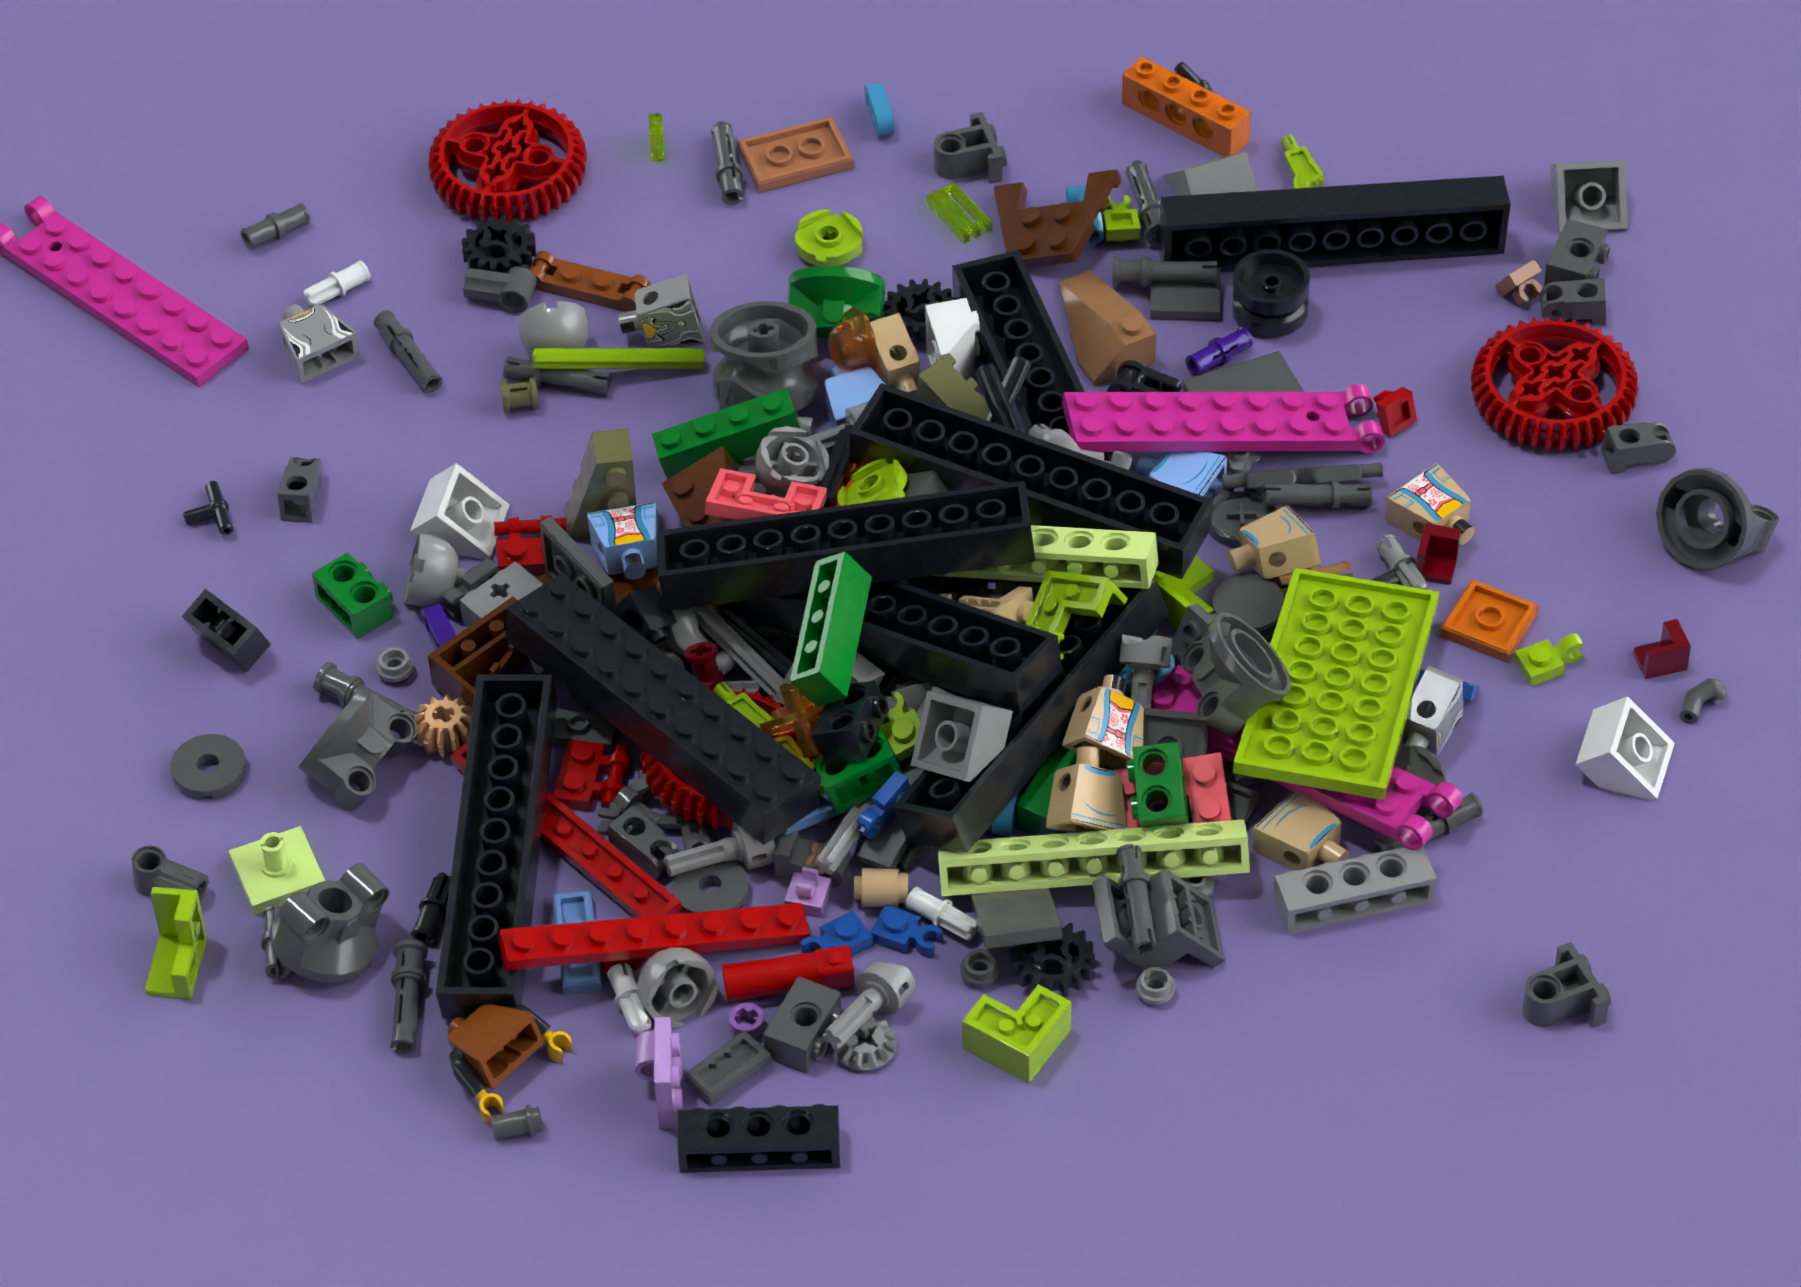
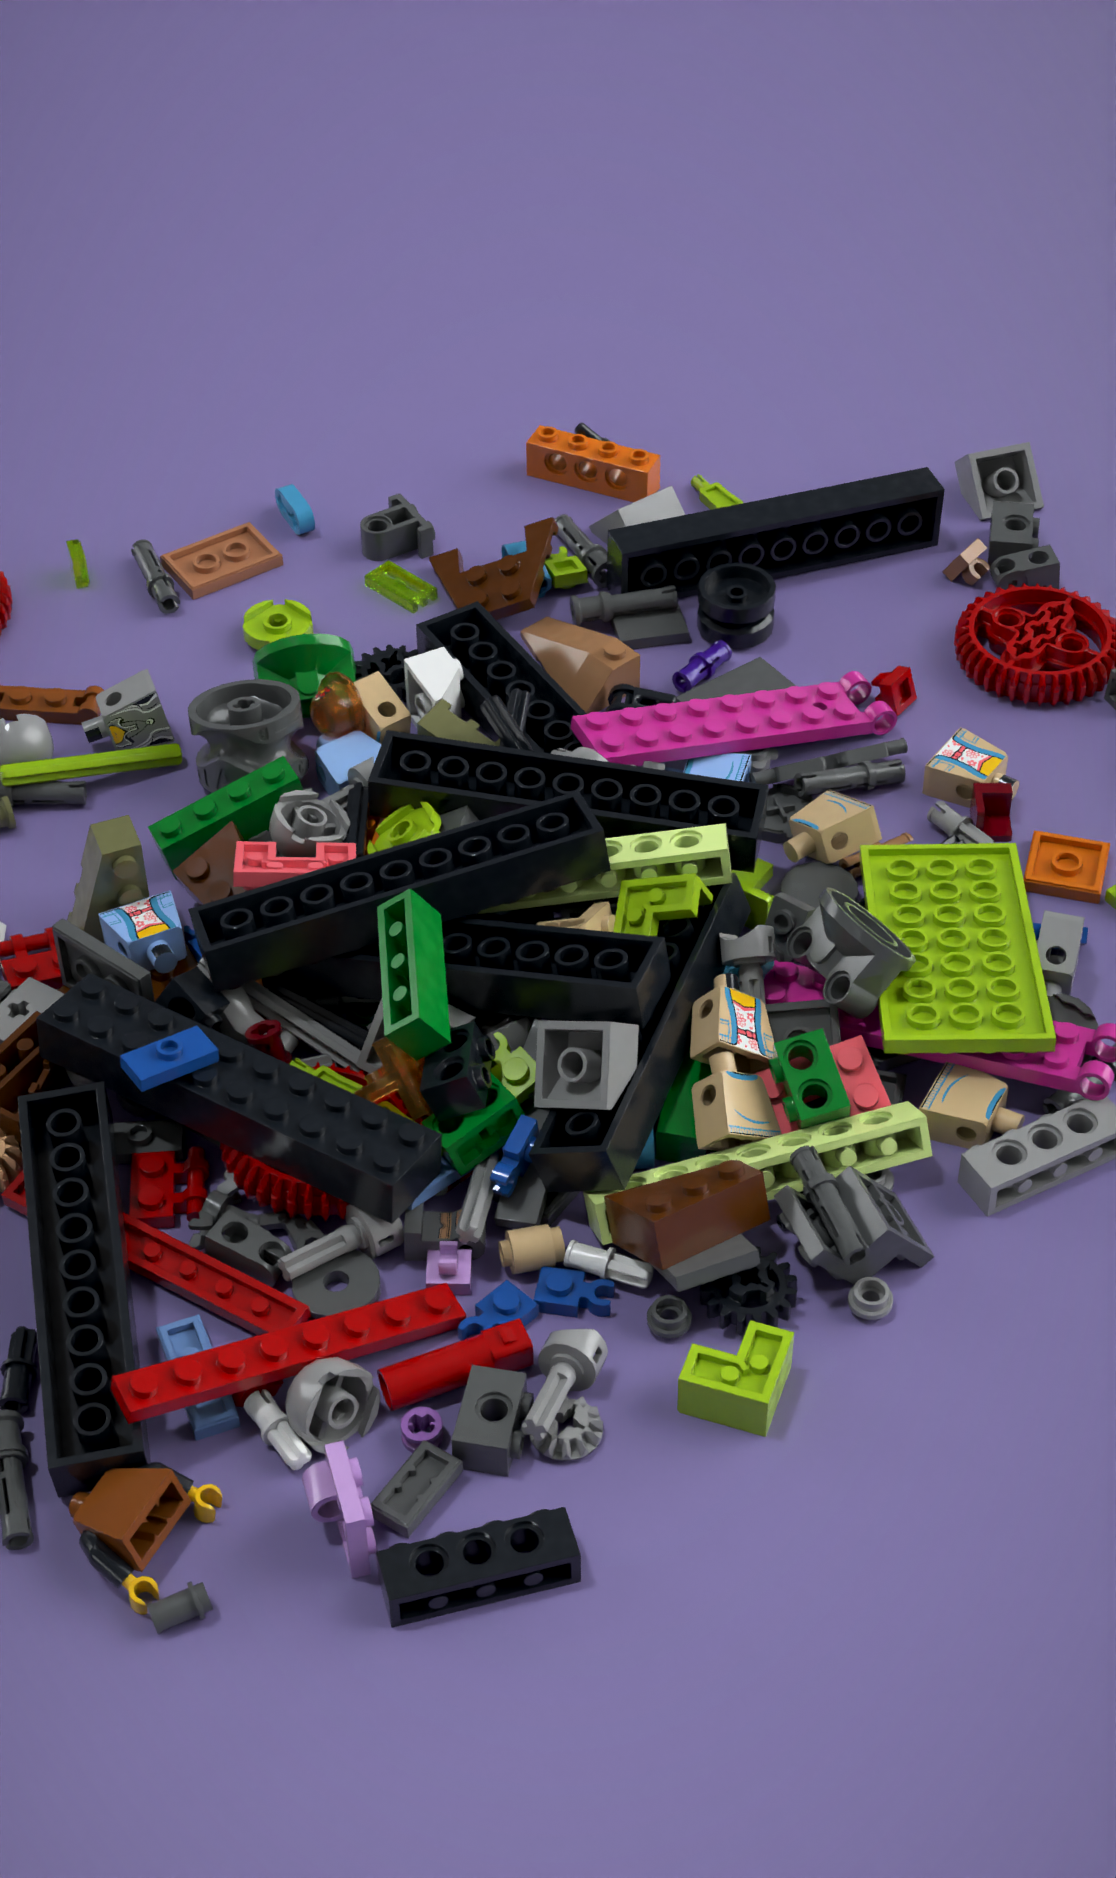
camera: 15 degrees left, 5 degrees down
(607, 666) = (169, 1058): none -> blue plate
(1015, 882) = (687, 1212): none -> reddish brown wedge

